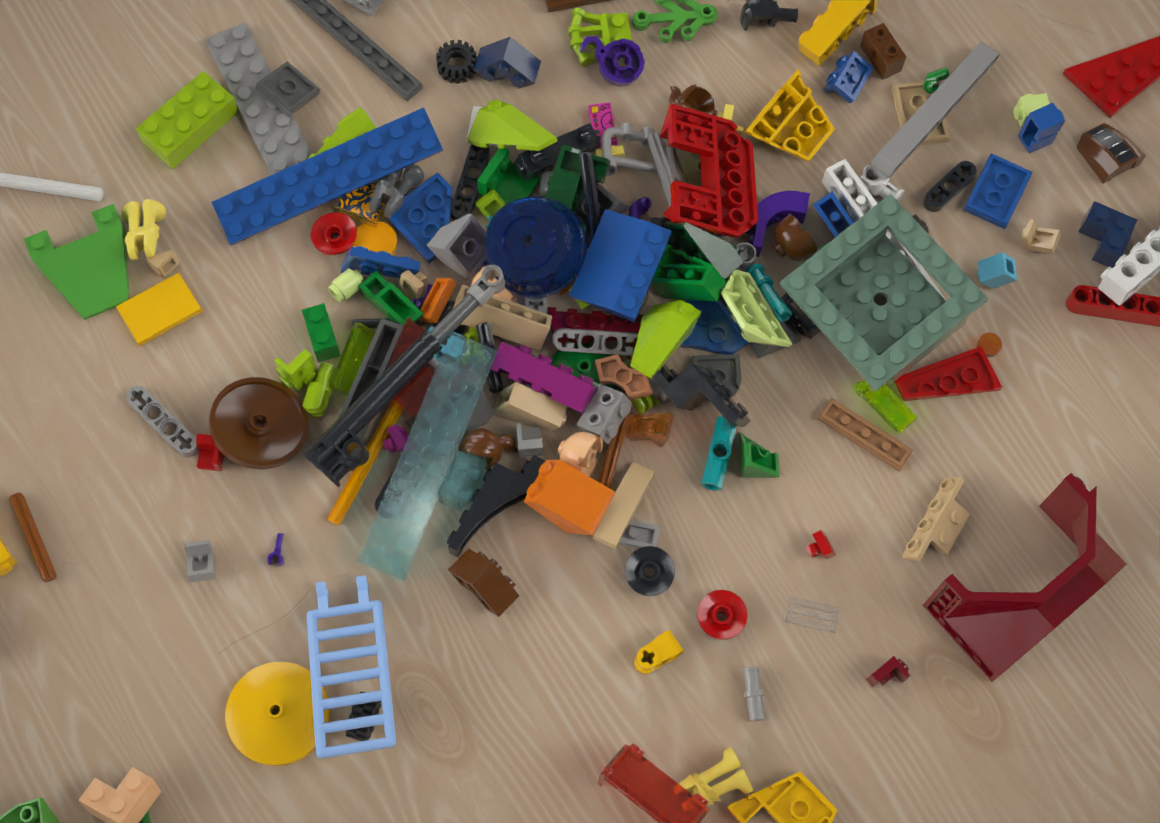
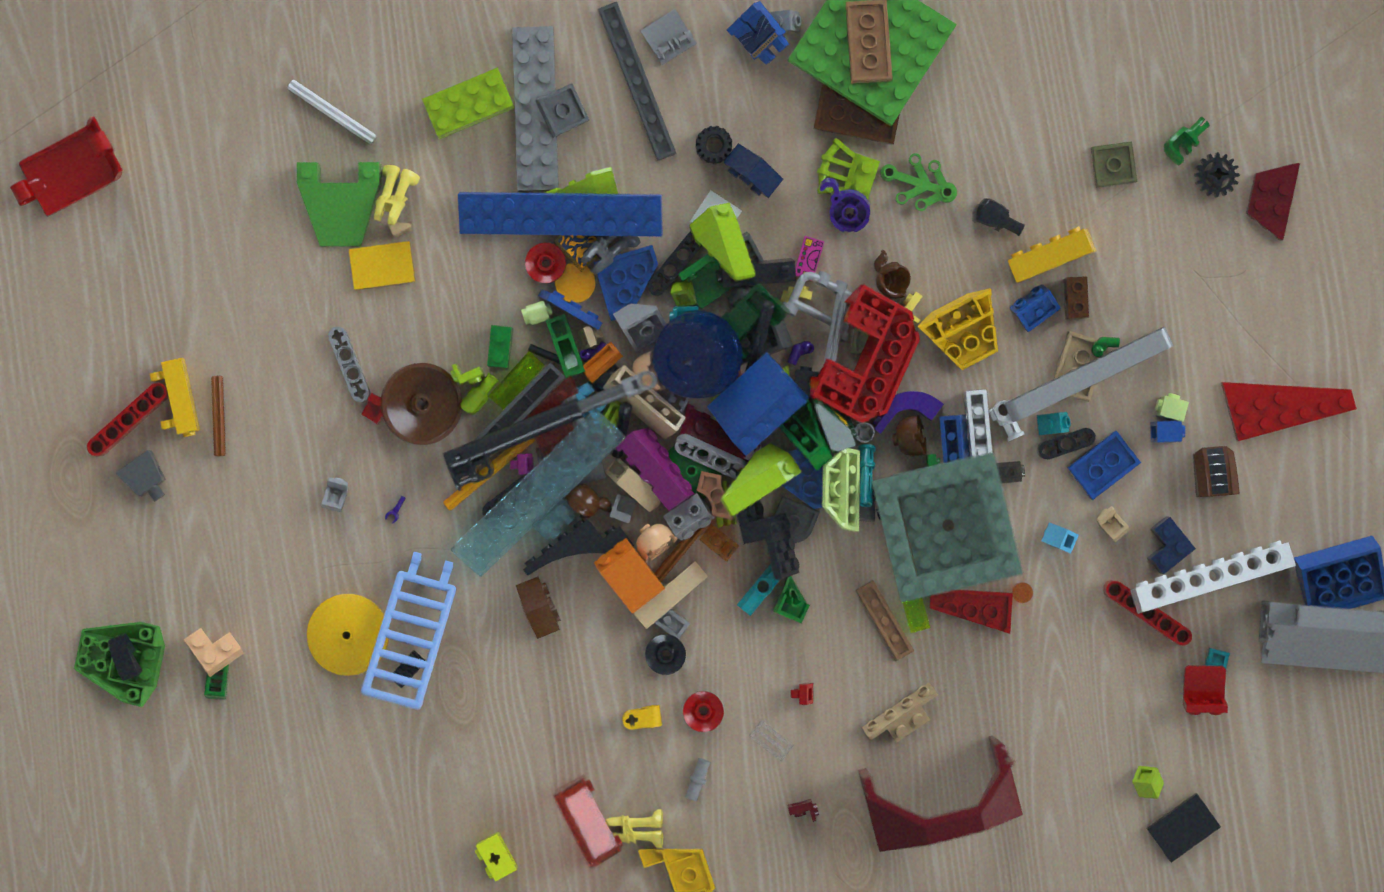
camera: 30 degrees right, 20 degrees up
(926, 171) = (1053, 423): none -> teal bracket

